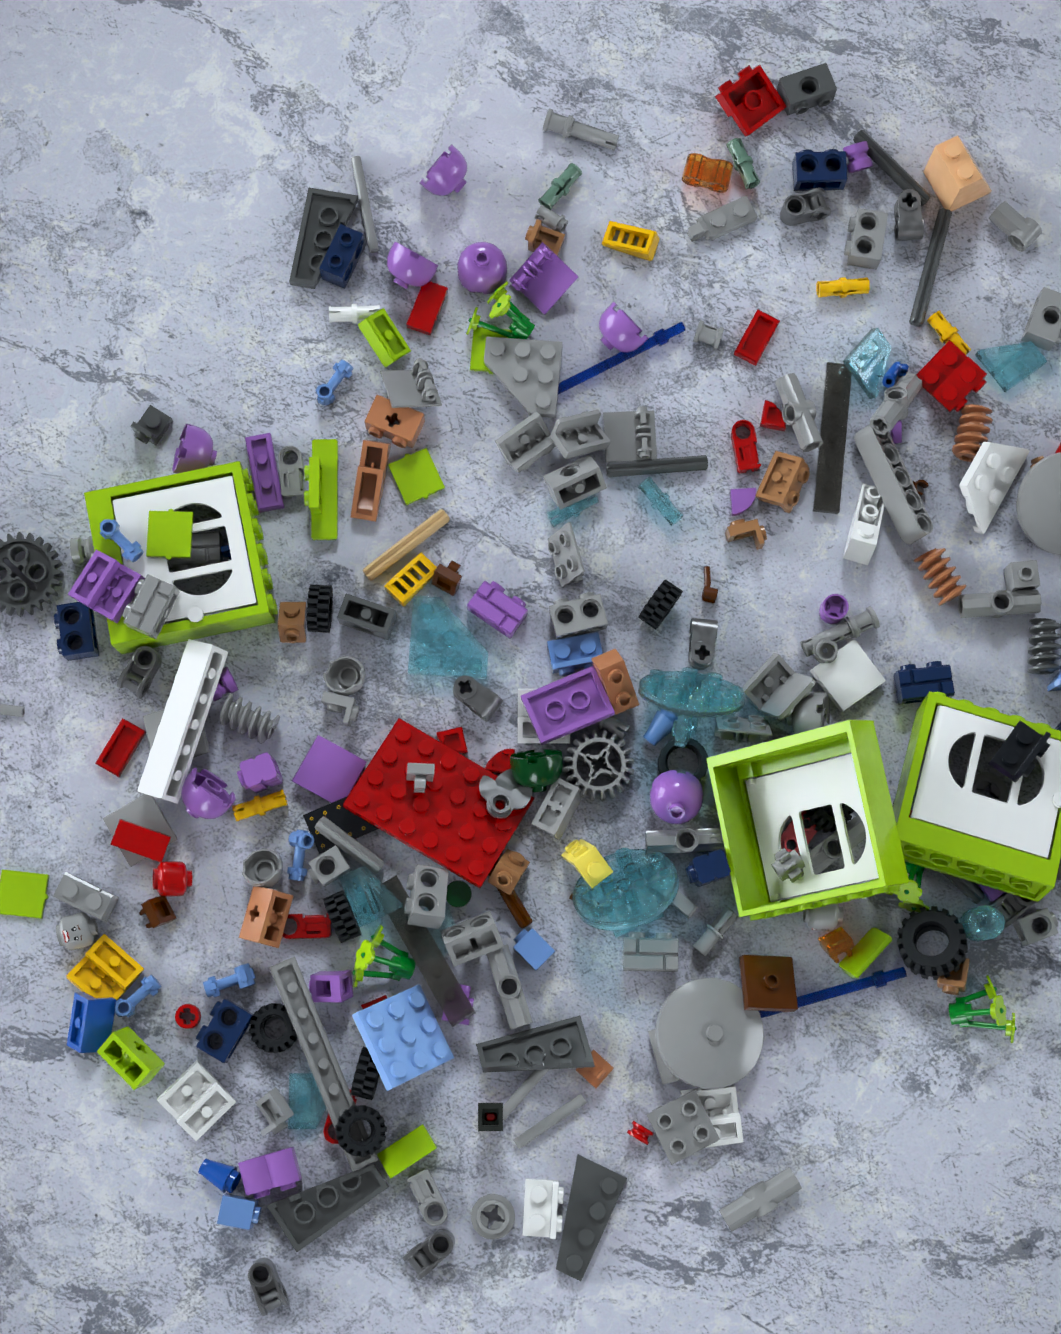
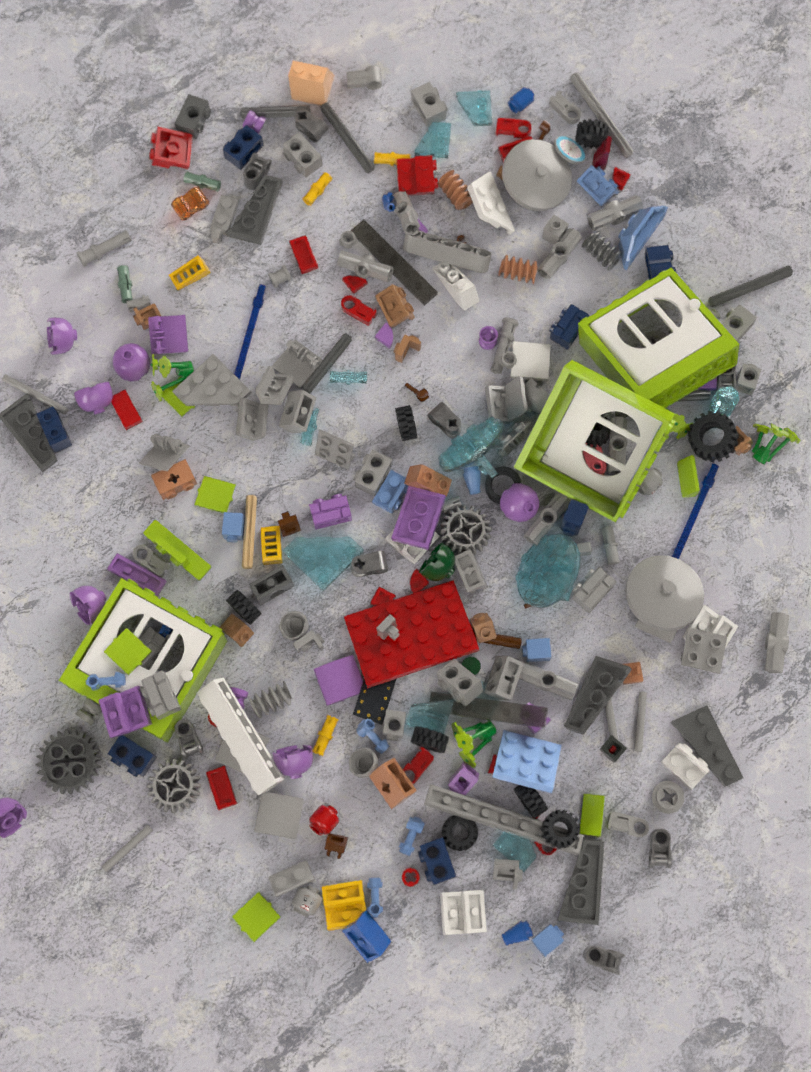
camera: 45 degrees left, 5 degrees down
(92, 695) = (172, 794): none -> light grey gear
(130, 1057) = (407, 928): lime brick -> none
(140, 840) = (286, 818): red tile -> none
(151, 426) = (51, 615): dark grey bracket -> none
(259, 773) = (308, 717): medium lavender brick -> none
(270, 1171) = (539, 902): medium lavender brick -> none
(325, 391) = (121, 503): medium blue bar -> none
(349, 845) = (391, 703): light grey axle -> none
(351, 313) = (92, 450): white pin -> none
(370, 480) = (195, 520): nougat slope -> none
(384, 337) = (121, 446): lime slope -> none
(395, 524) = (233, 526): none -> medium blue brick
(504, 791) = (436, 591): flat silver plate -> none
(587, 861) = (514, 577): light yellow bracket -> none
(620, 330) = (235, 318): medium lavender cylinder -> none
(640, 1132) = (687, 677): red bush -> none
(754, 251) = (255, 217): none -> dark grey wing
(768, 983) = (663, 539): reddish brown plate -> none
(788, 865) = (609, 473): light grey gear -> none
(815, 362) = (348, 235): none -> light grey plate
(836, 943) = (671, 487): clear orange tile -> none
(868, 361) = (369, 209): clear light blue wing -> none
(1019, 750) = (651, 303): black bracket -> none

